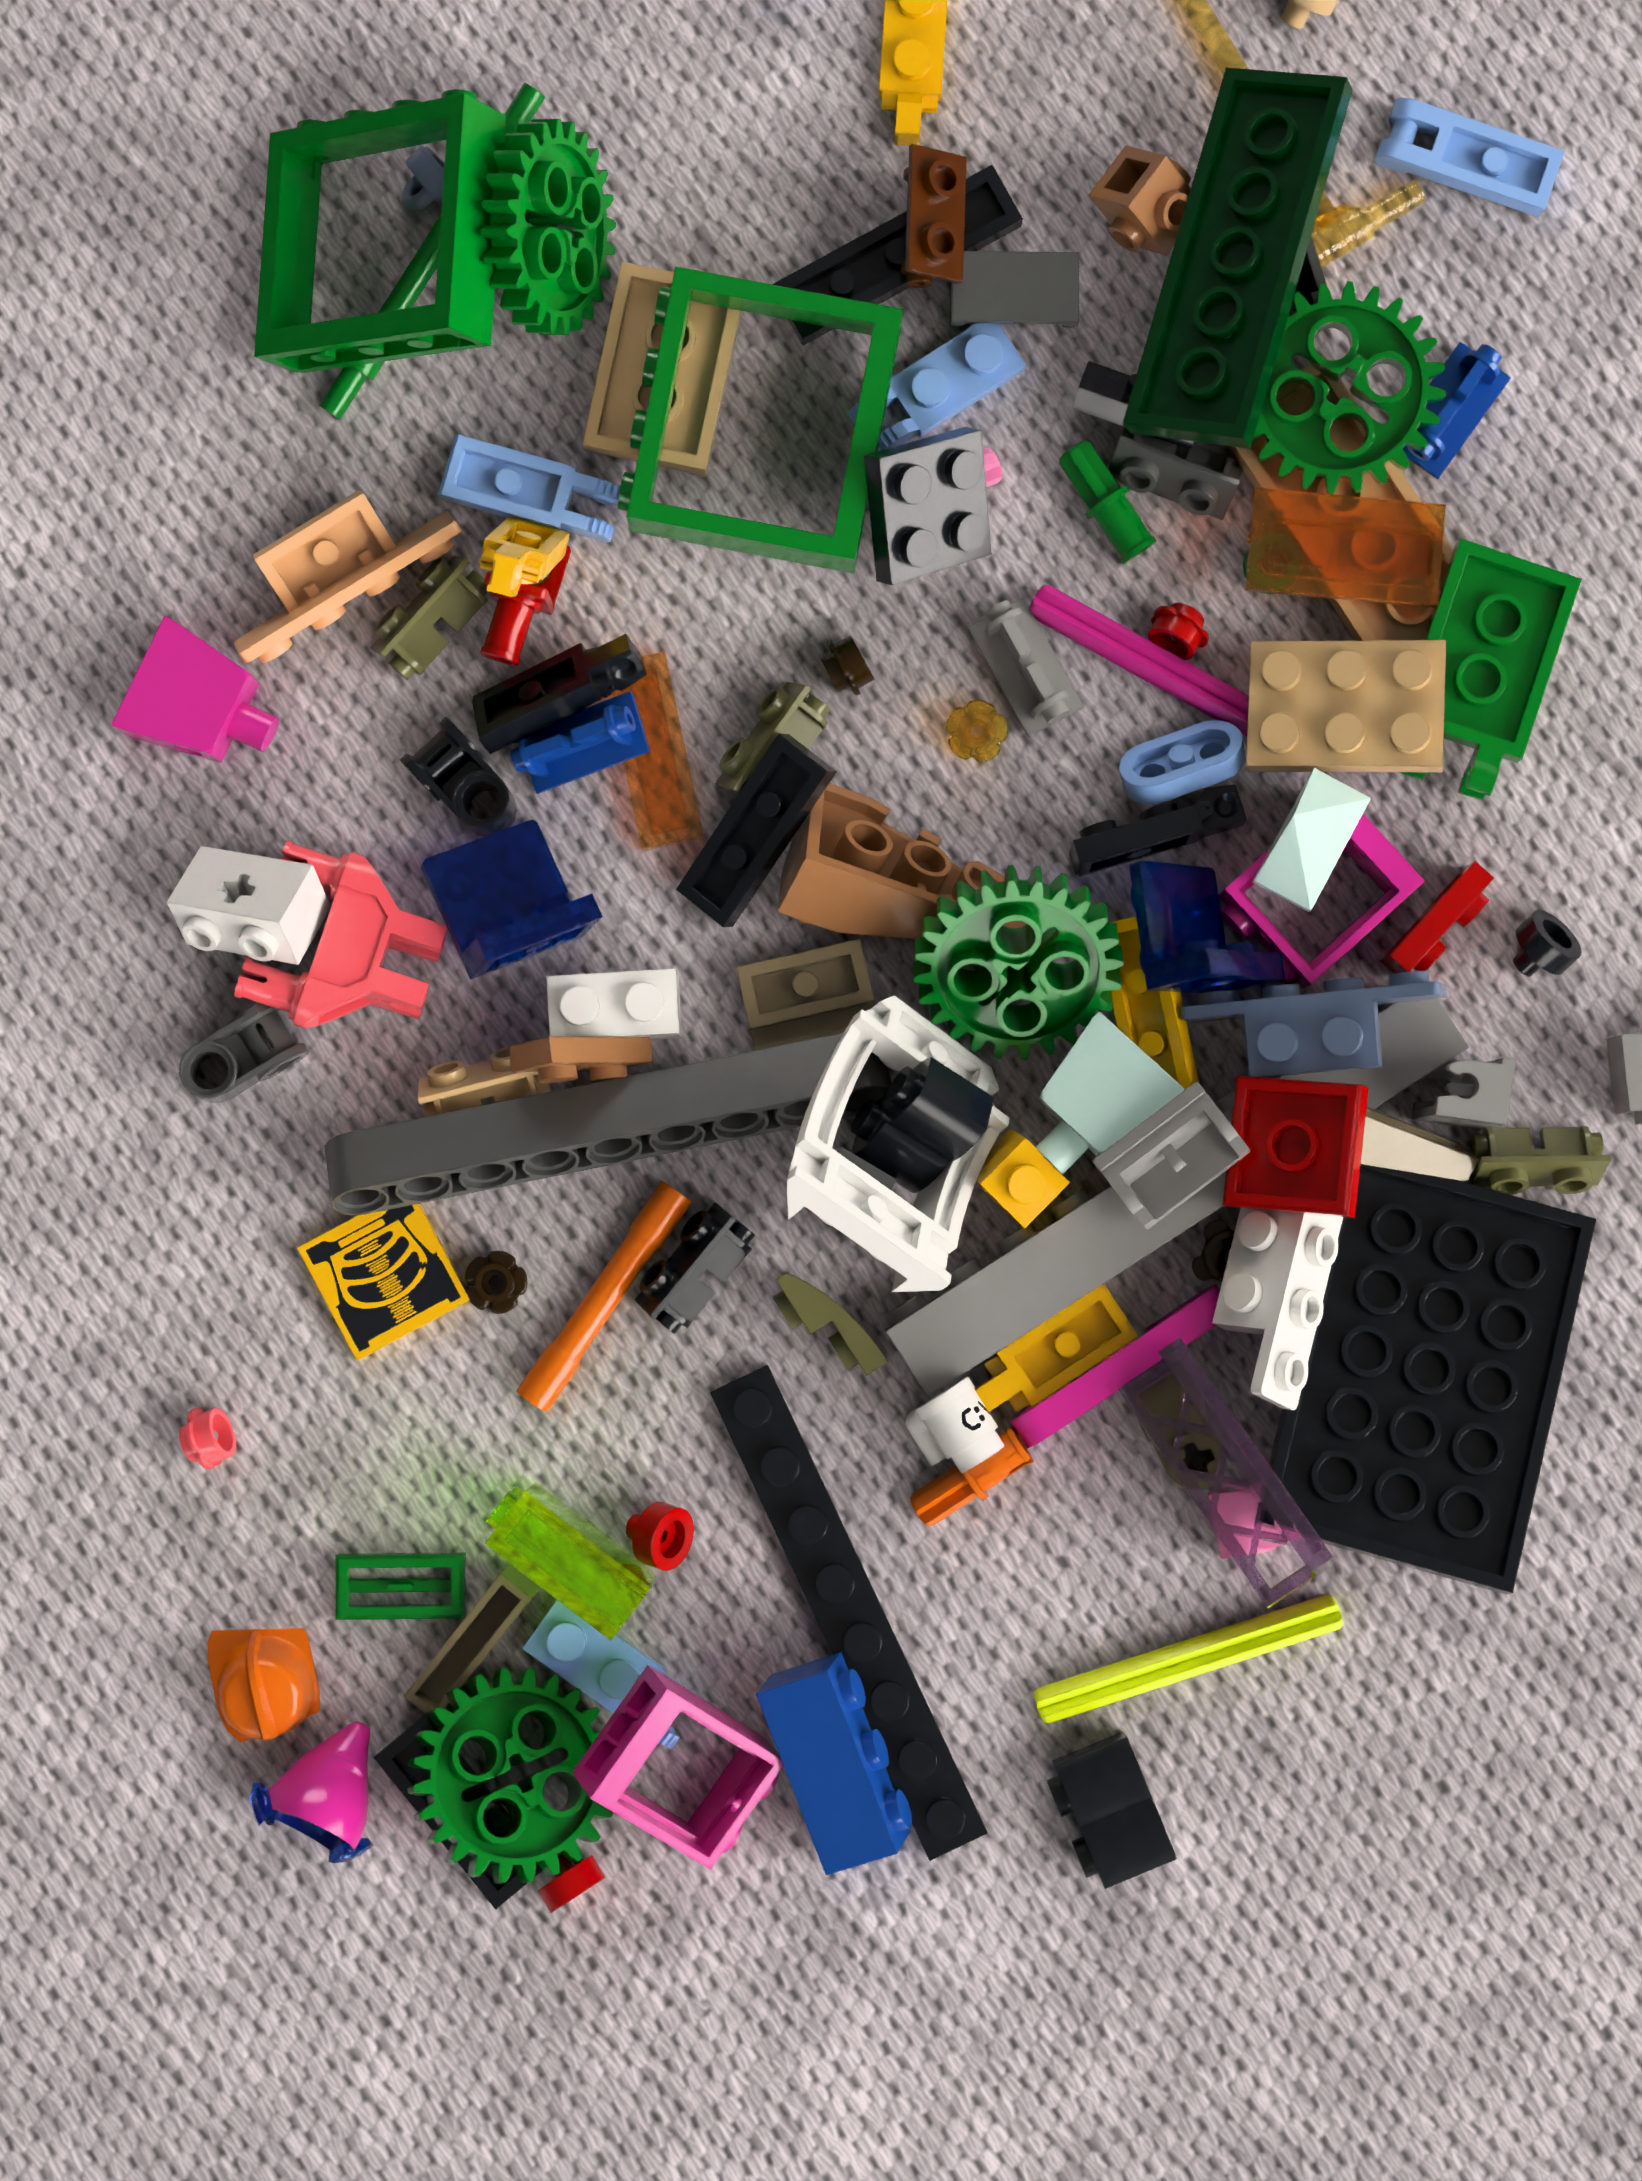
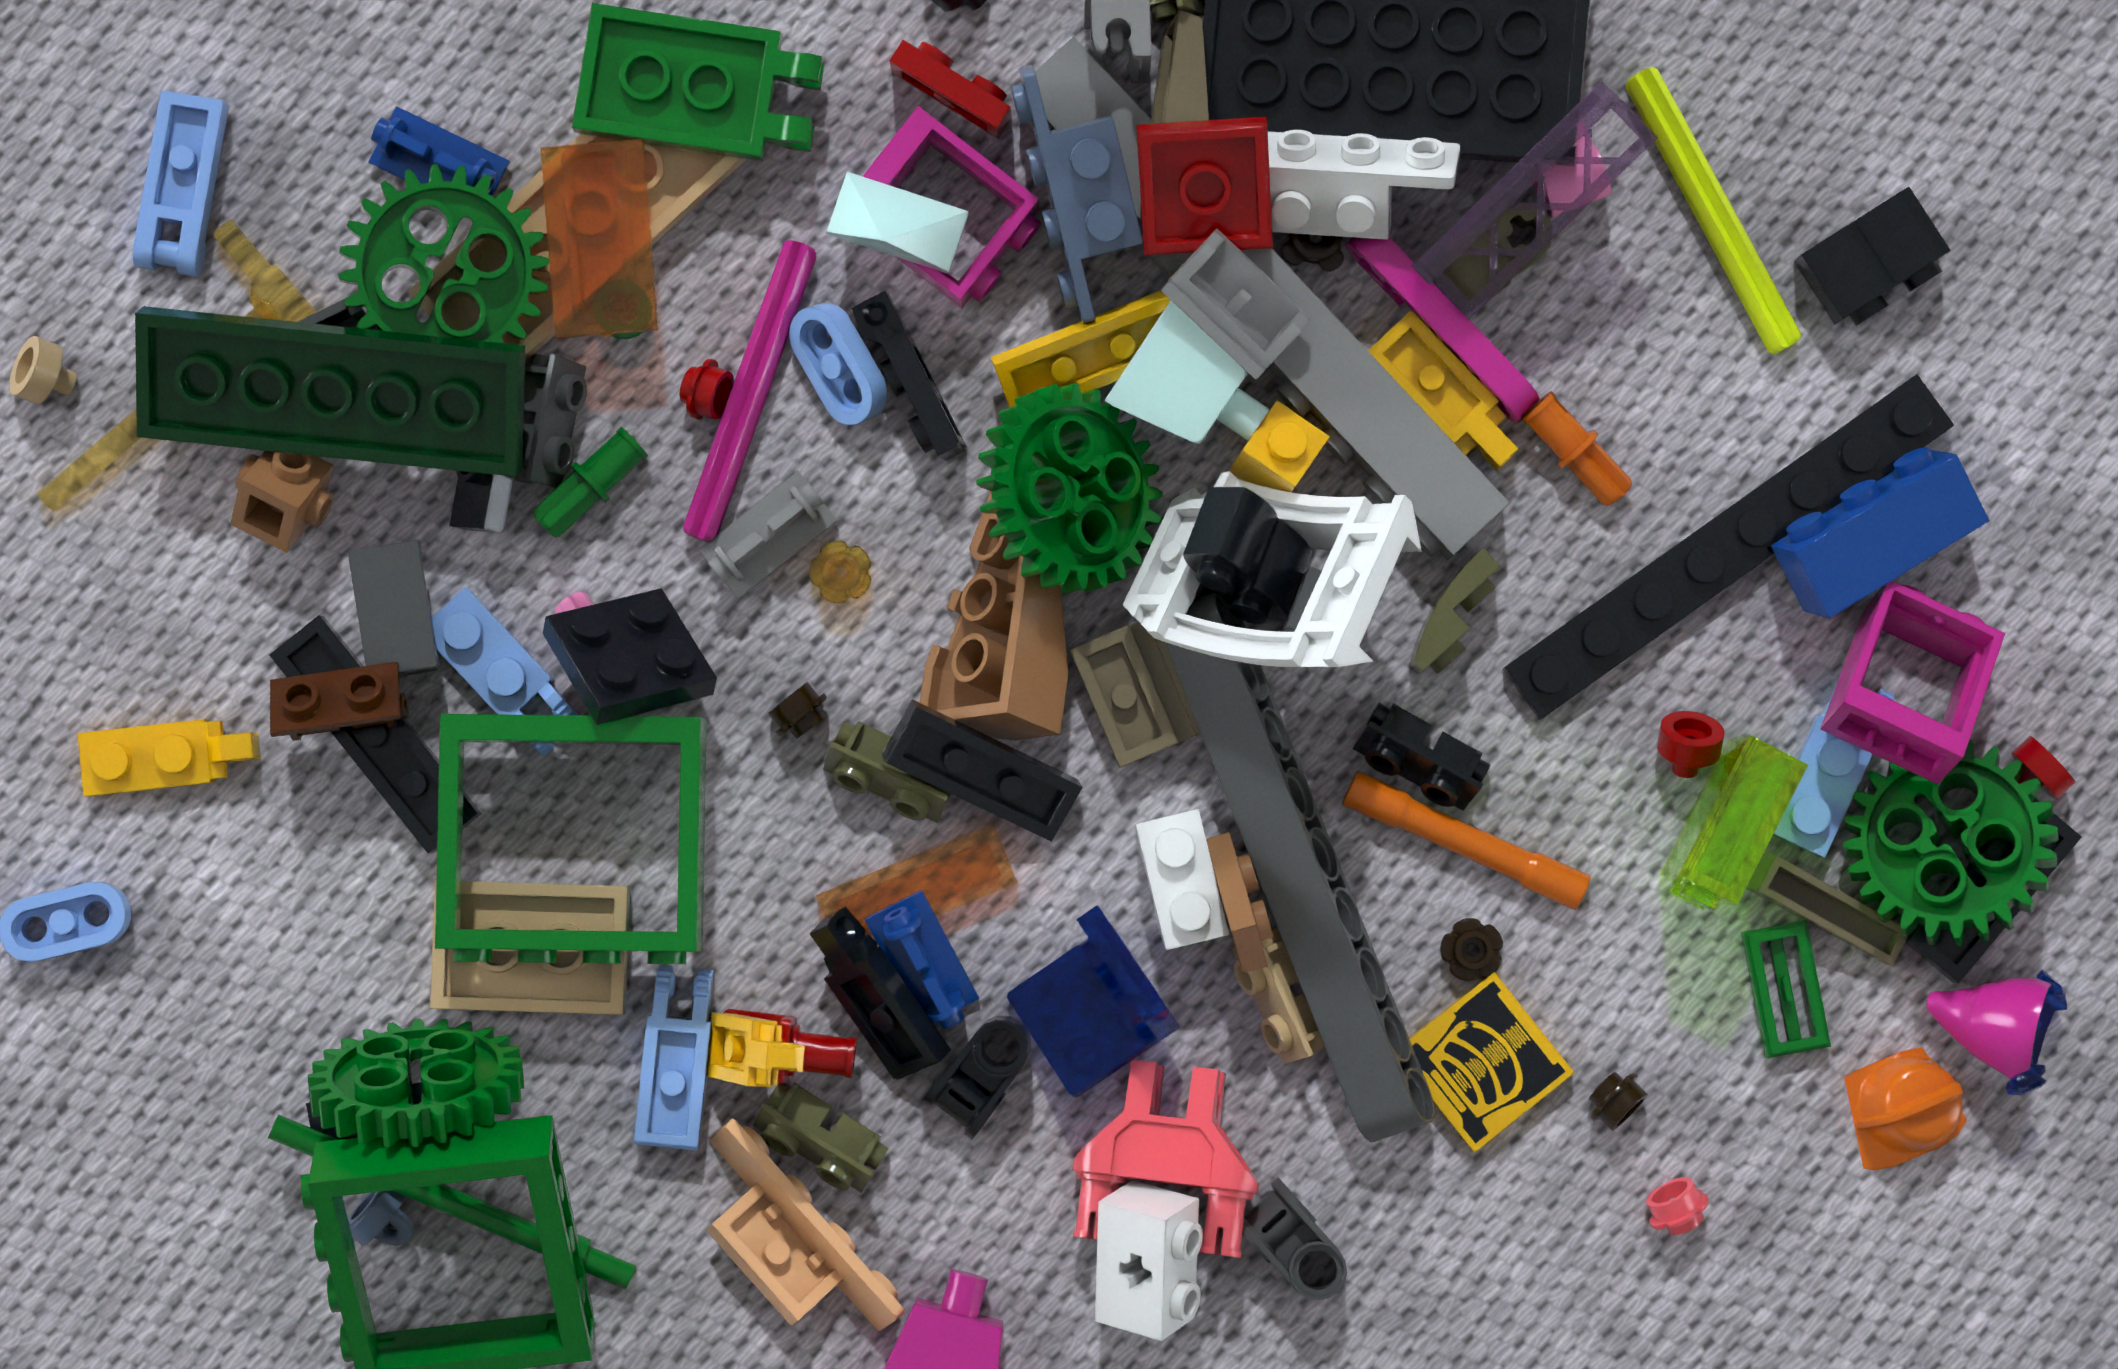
camera: 95 degrees left, 0 degrees up
(322, 1397) = (1617, 1099): none -> dark brown plate
(955, 1427) = (1533, 471): white piece -> none
(1185, 933) = (1011, 330): clear blue bracket -> none
(1346, 706) = (758, 210): tan plate -> none

